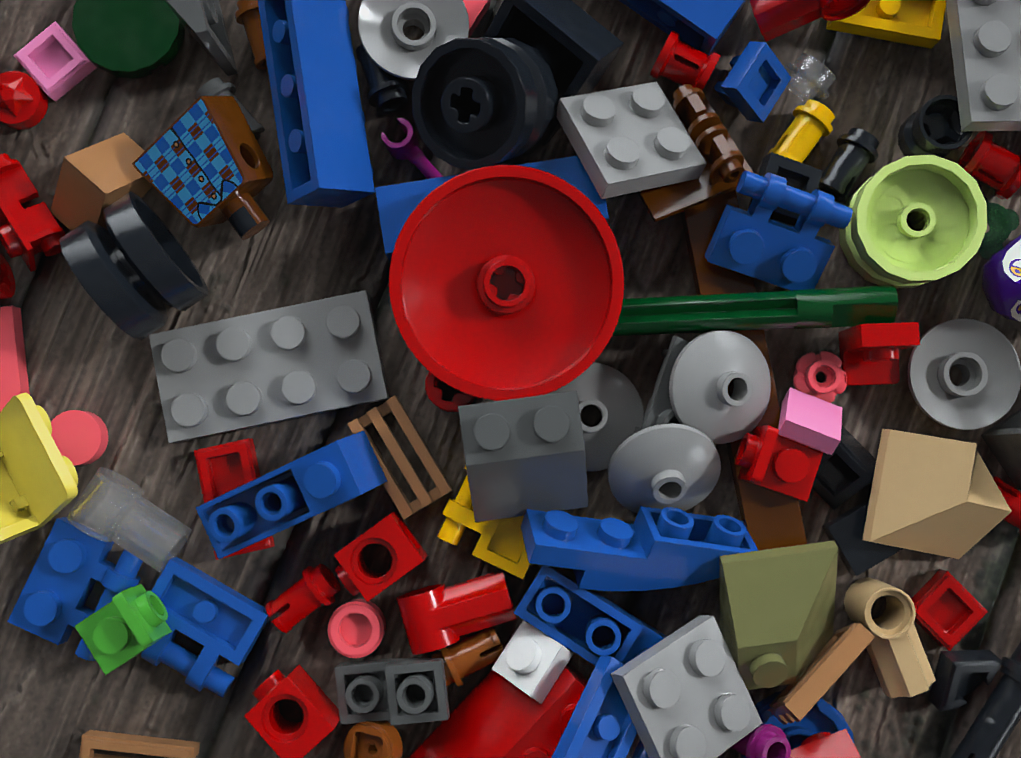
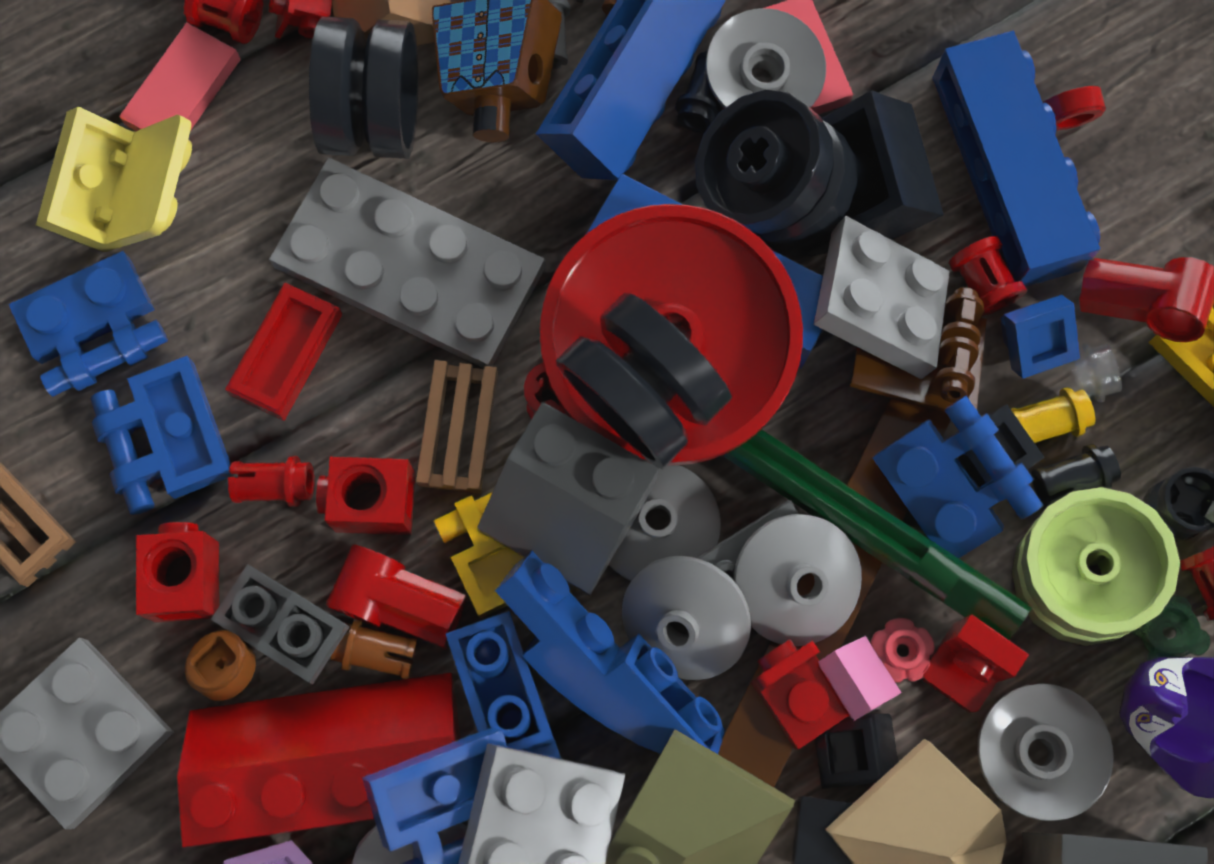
camera: 40 degrees right, 10 degrees down
(80, 436) = (200, 199): coral tile -> none
(116, 512) = (177, 285): clear piece -> none
(124, 627) = (102, 380): bright green bracket -> none
(291, 494) = (340, 379): blue slope -> none
(356, 628) = (295, 547): coral tile -> none
(409, 150) = (680, 169): magenta hand -> none
(525, 342) = (644, 379): none -> black wheel
(532, 661) = (427, 693): white plate -> none

